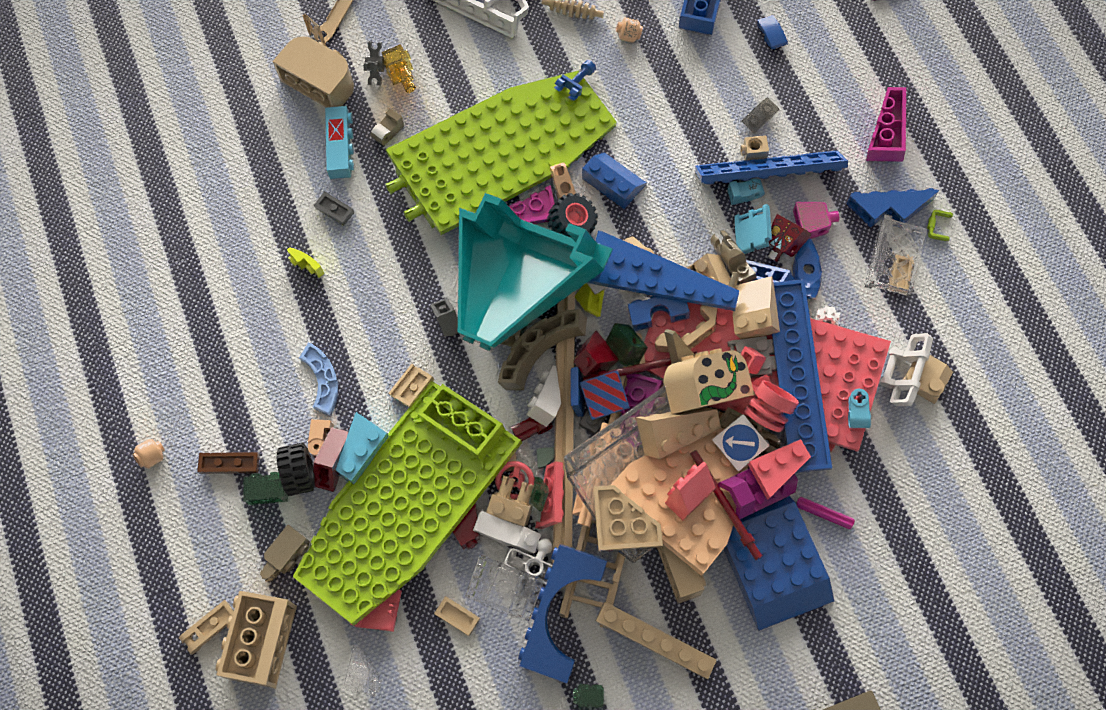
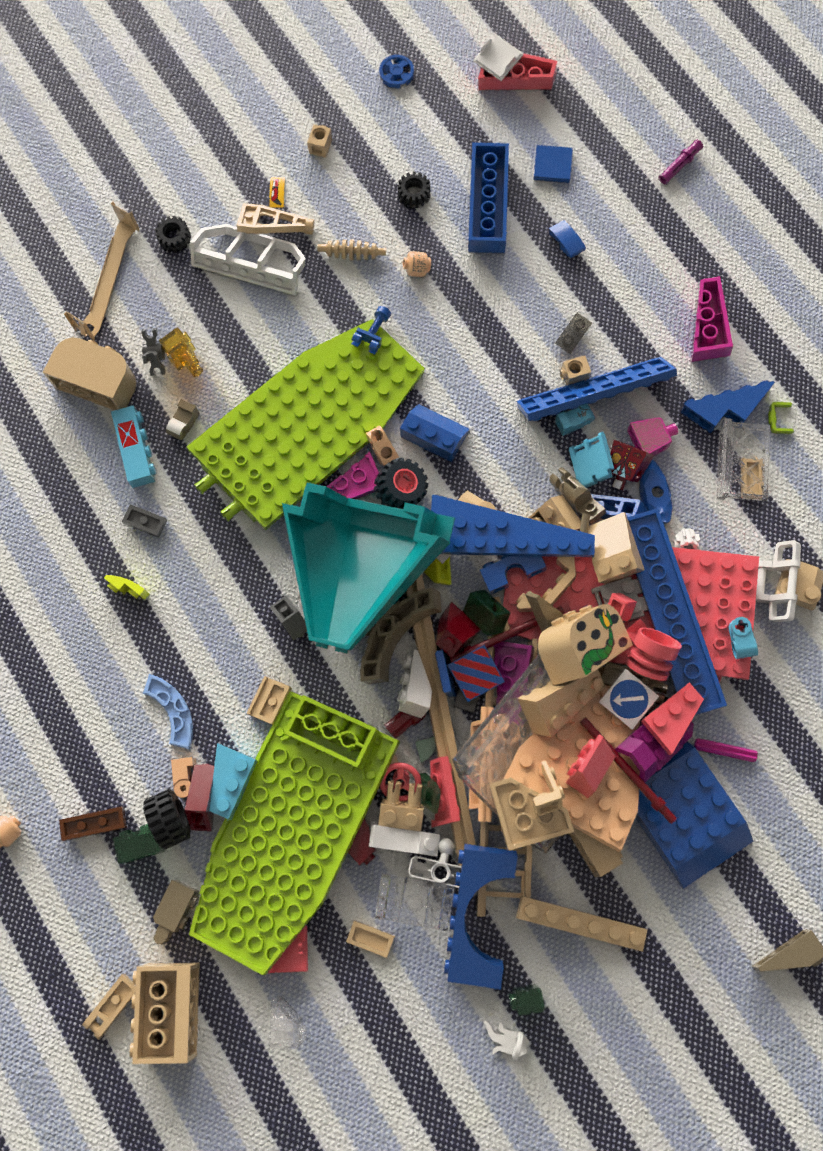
camera: 10 degrees left, 5 degrees up
(645, 512) = (552, 801): none -> tan bracket

